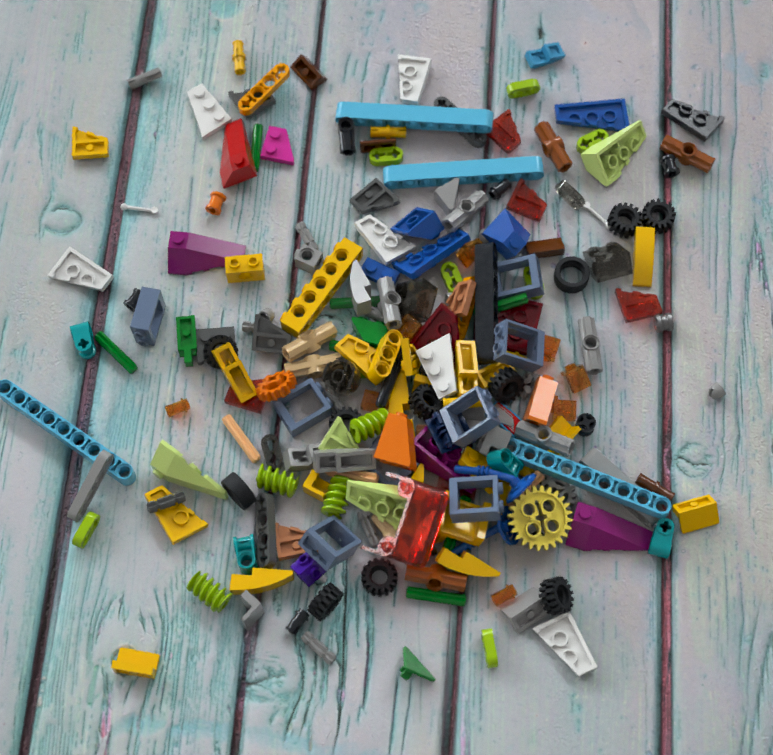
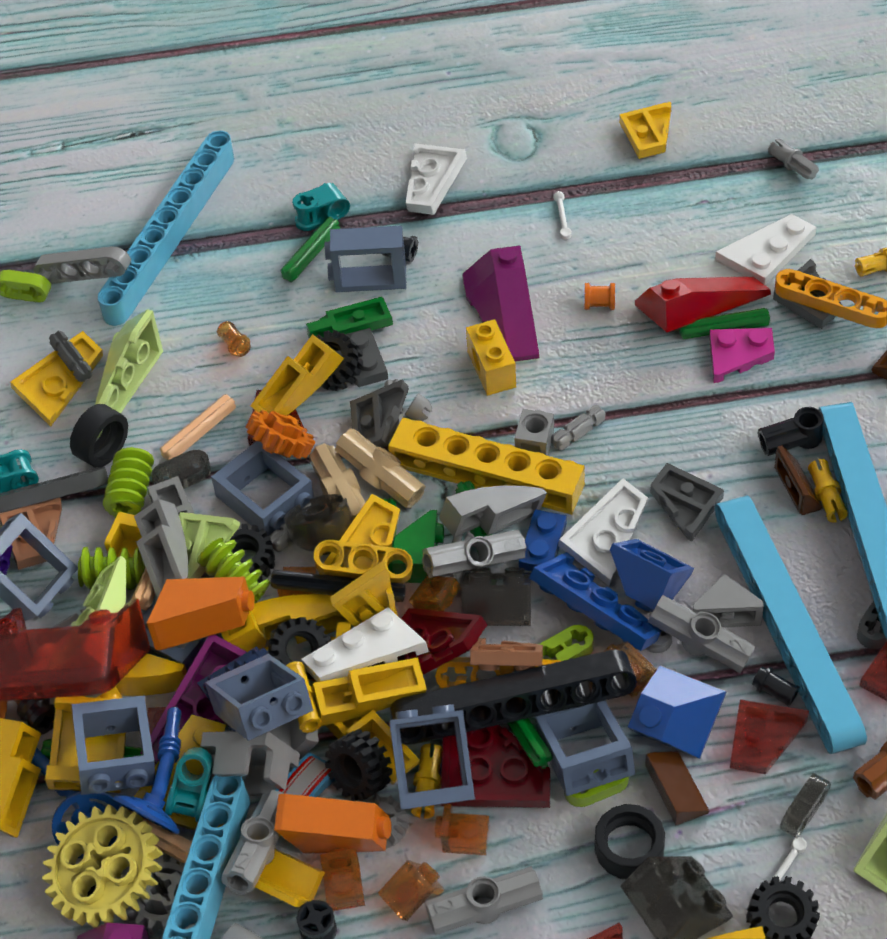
camera: 80 degrees right, 15 degrees down
(386, 156) = (772, 502): lime beam -> none

